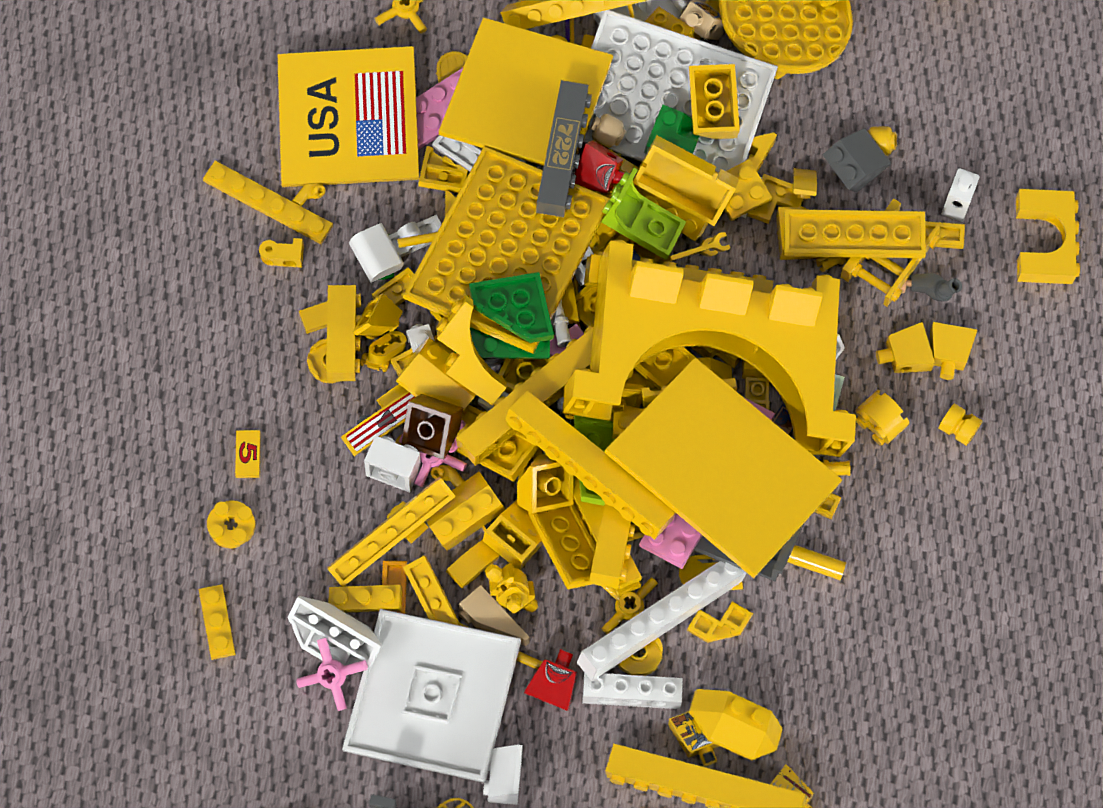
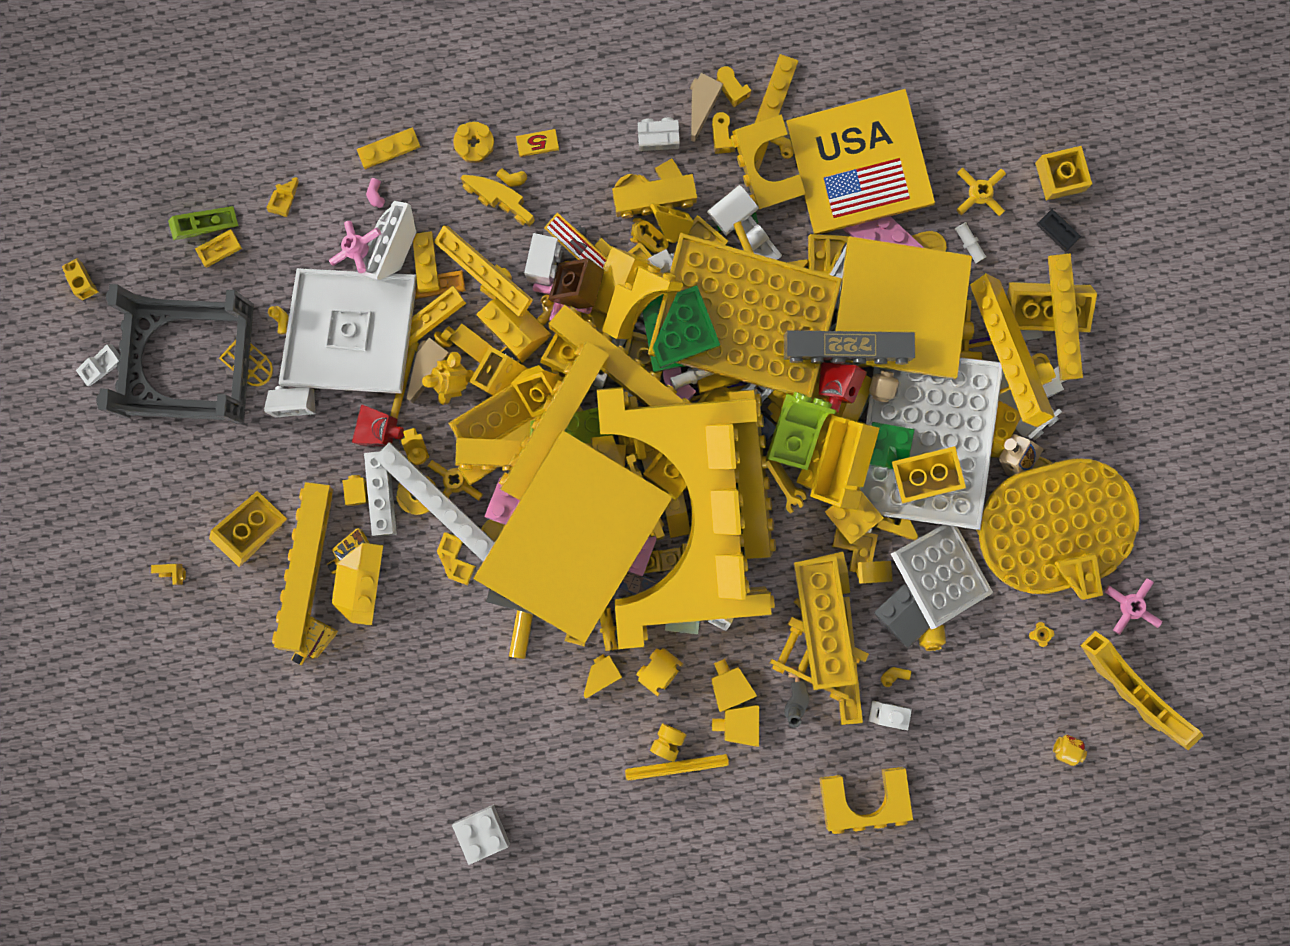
camera: 85 degrees right, 15 degrees up
(229, 235) = (731, 87): none -> yellow leg
(241, 267) = (704, 96): none -> tan slope
(251, 754) = (283, 197): none -> yellow slope
(269, 319) = (658, 134): none -> white brick
(271, 647) = (373, 195): none -> bright pink arm
(286, 487) = (512, 180): none -> yellow arm
(298, 509) = (492, 192): none -> yellow slope
(303, 222) = (747, 141): none -> yellow arch
(398, 777) = (281, 317): none -> yellow arm
(458, 26) = (970, 242): none -> white pin
(458, 590) = (443, 338): none -> yellow plate
(582, 637) = (414, 447): none -> yellow hips
(623, 719) = (355, 490): none -> yellow brick
(818, 115) = (941, 574): none -> white plate
(877, 483) = (601, 675): none -> yellow slope
(895, 31) = (1047, 634): none -> yellow plate
(915, 186) = (893, 674): none -> yellow arm
(988, 423) = (677, 767): none -> yellow axle
(1019, 32) = (1069, 750): none -> yellow head
(1038, 639) = (481, 834): none -> white brick

